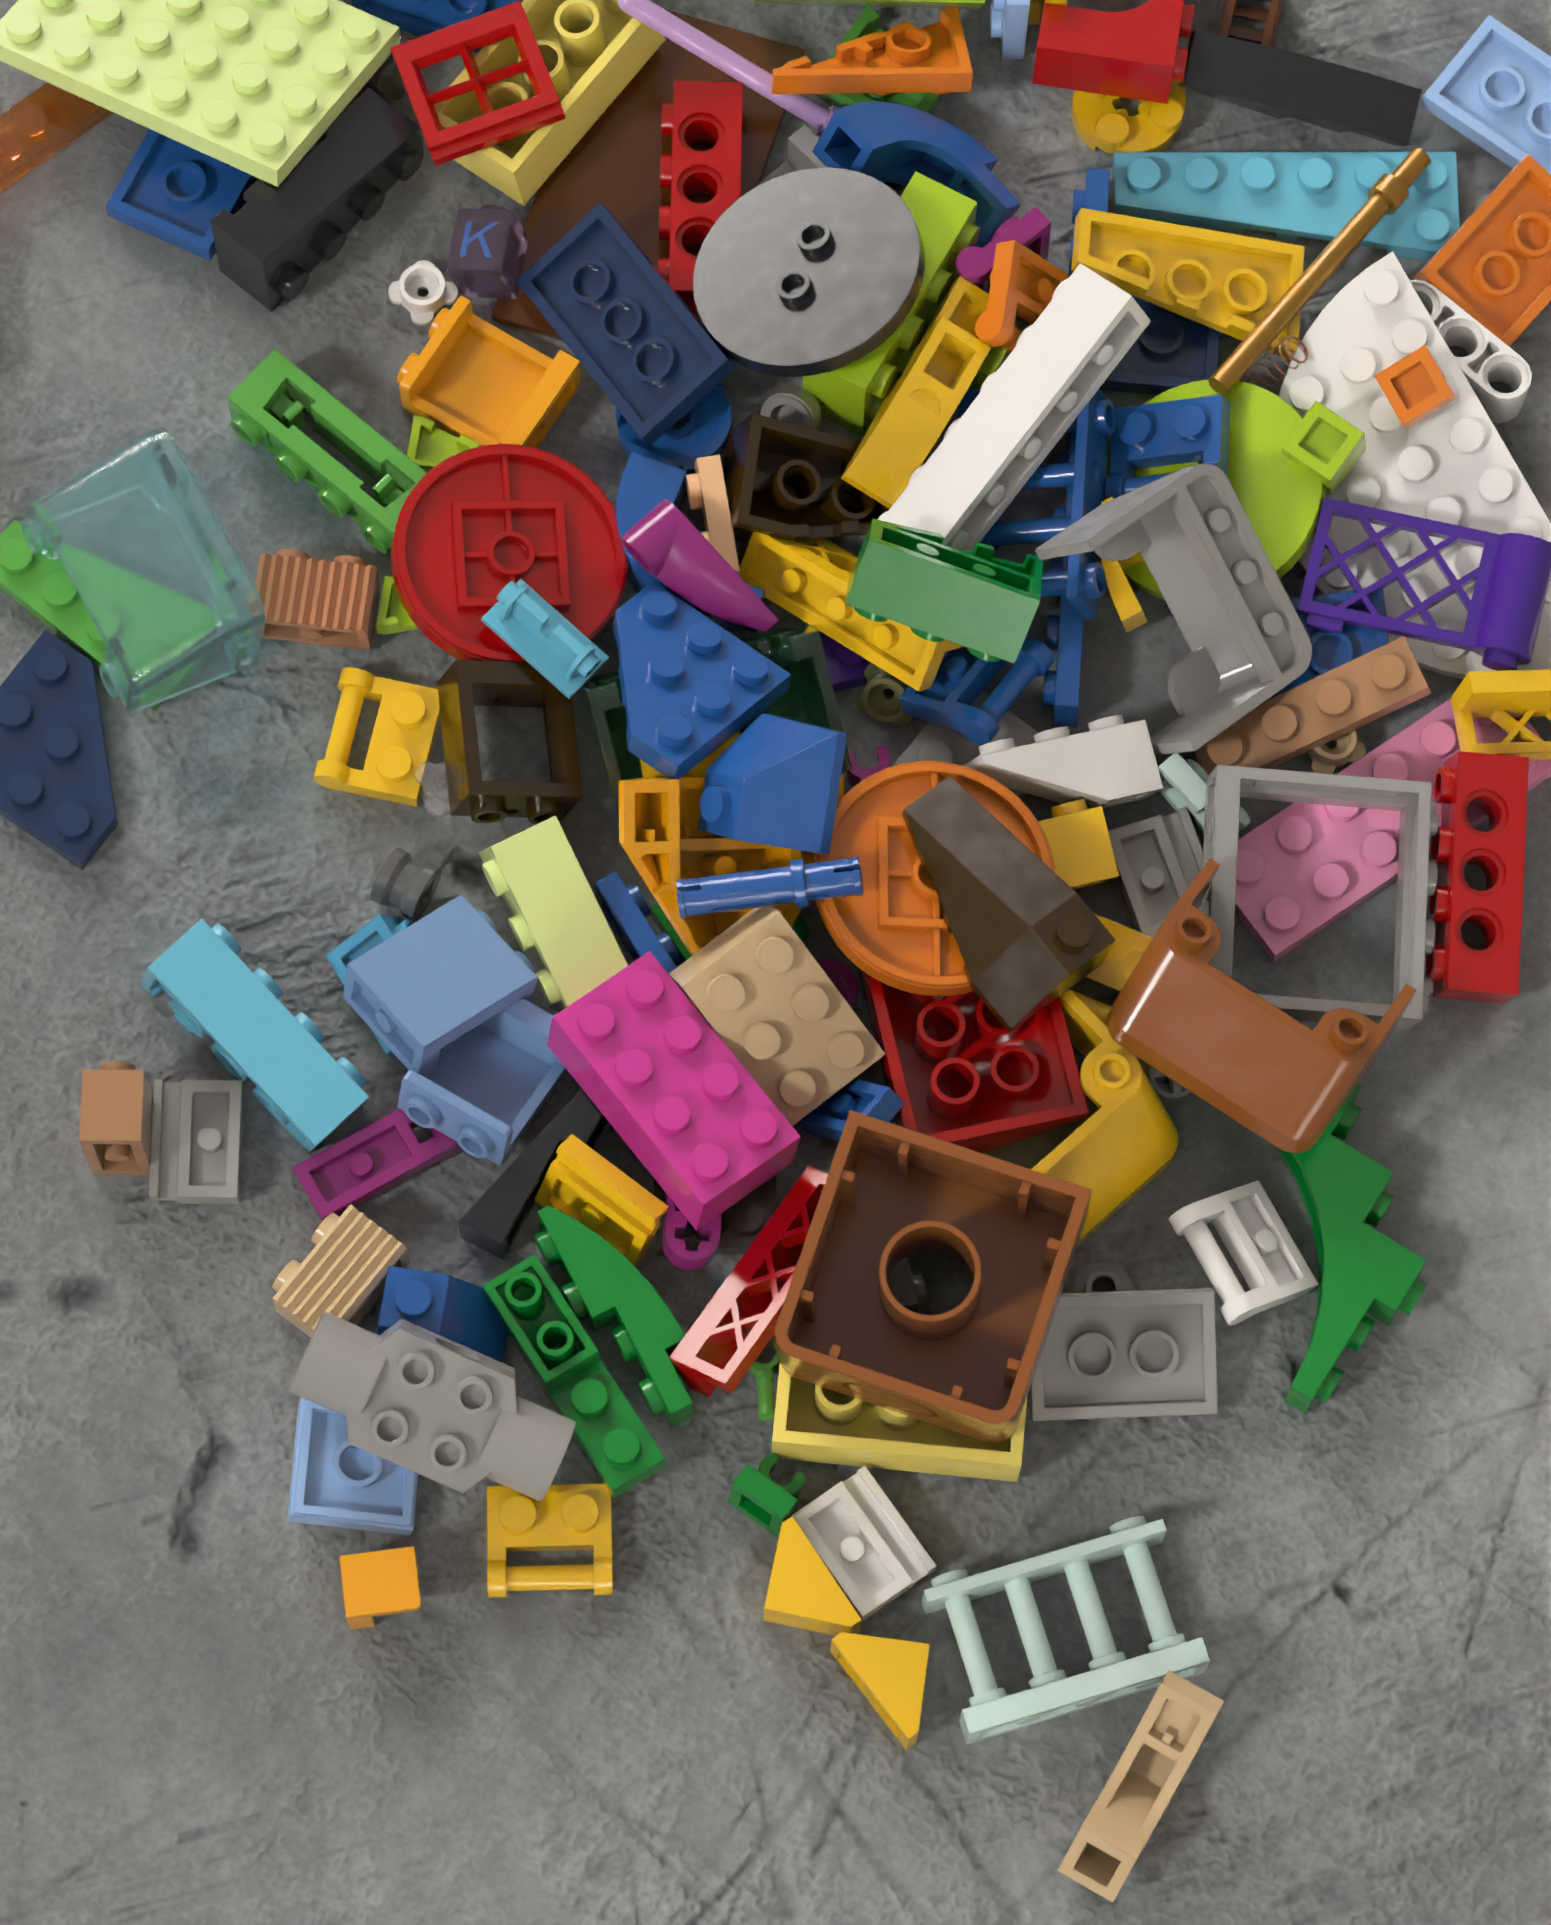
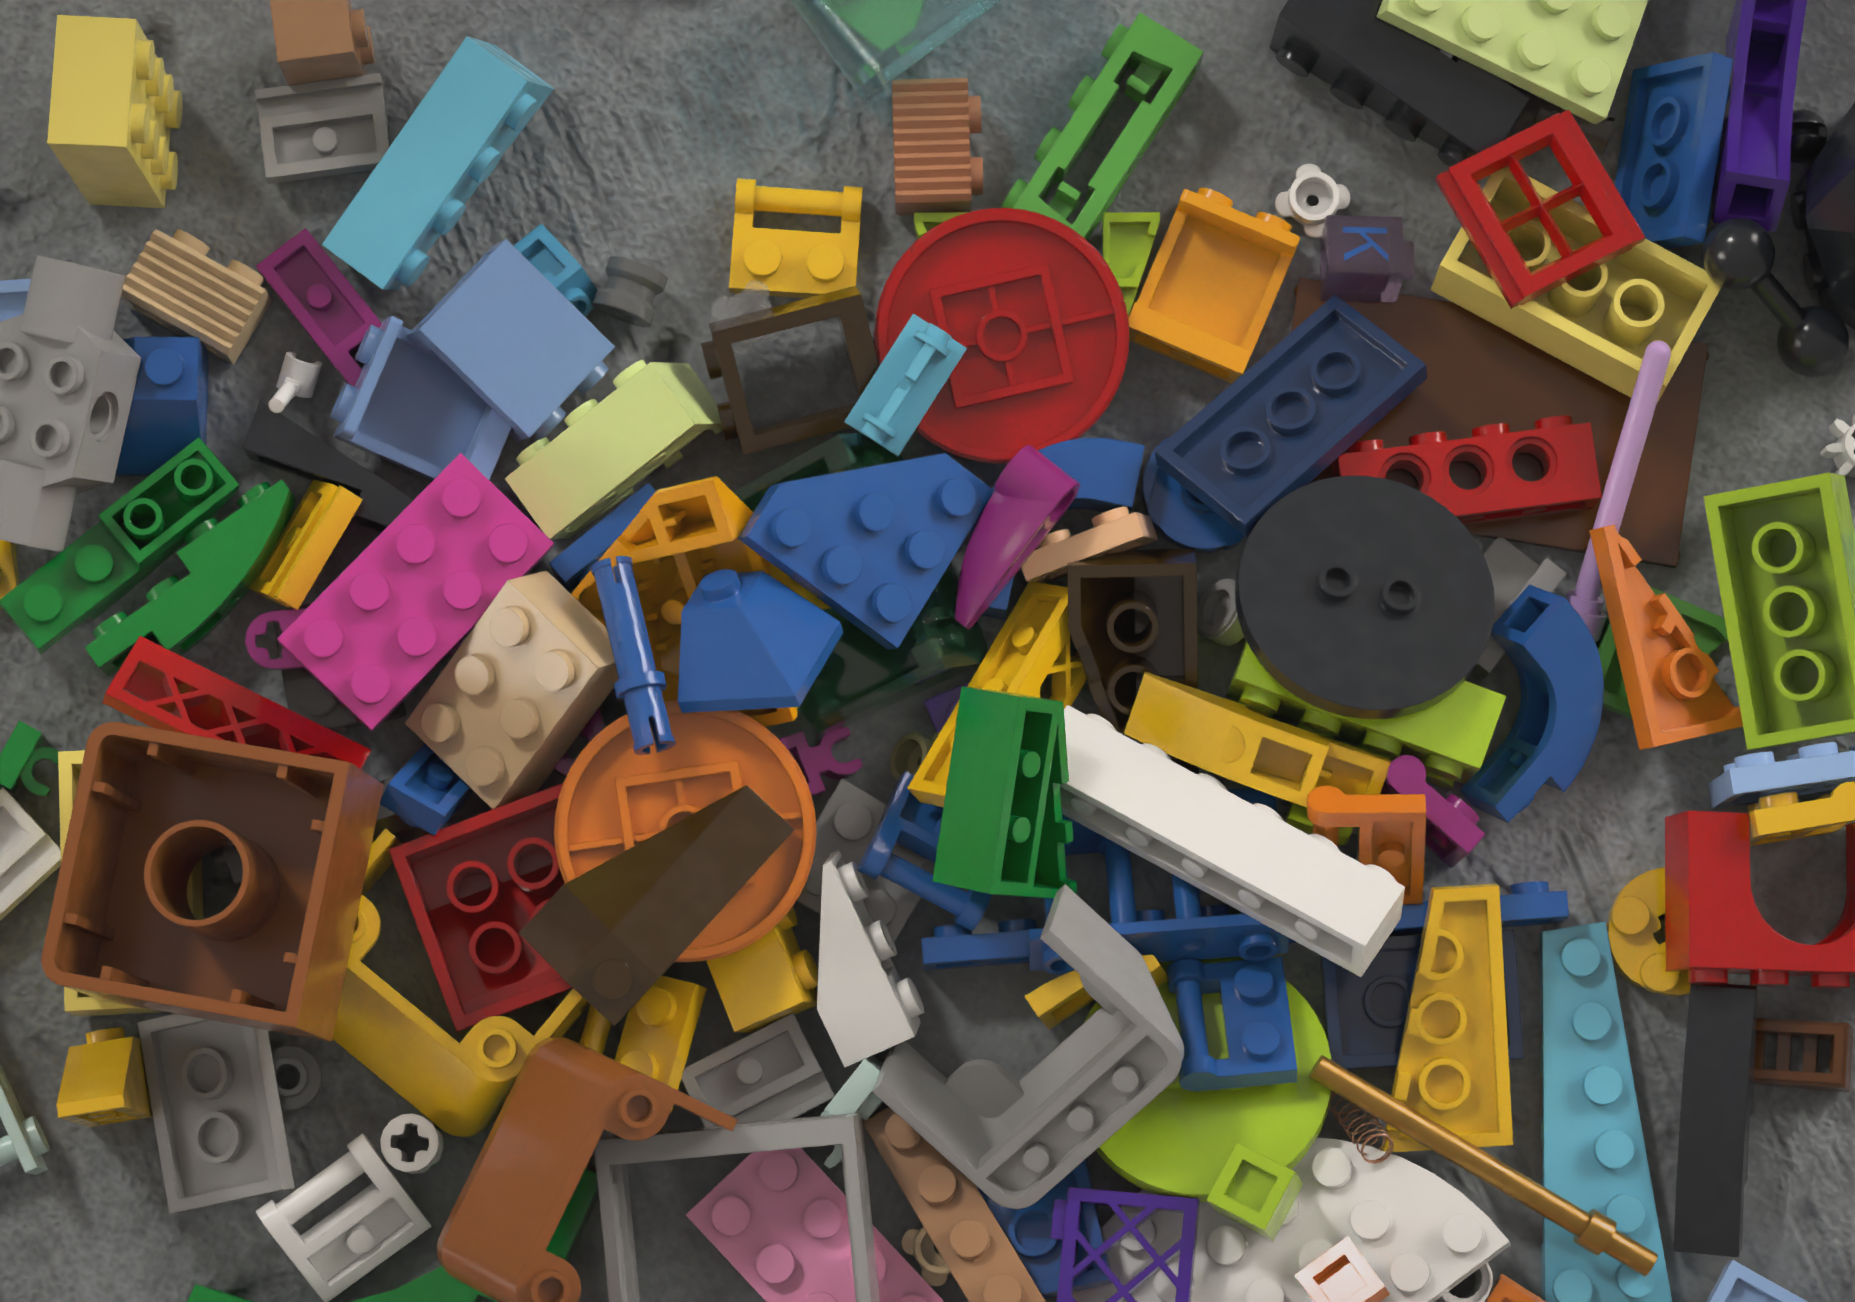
camera: 80 degrees right, 10 degrees up
(162, 1296) = (113, 112): none -> light yellow brick
(436, 1199) = (295, 379): none -> white hand
(1090, 1441) = (104, 1080): none -> yellow slope
(1179, 1164) = (400, 1128): none -> white bush

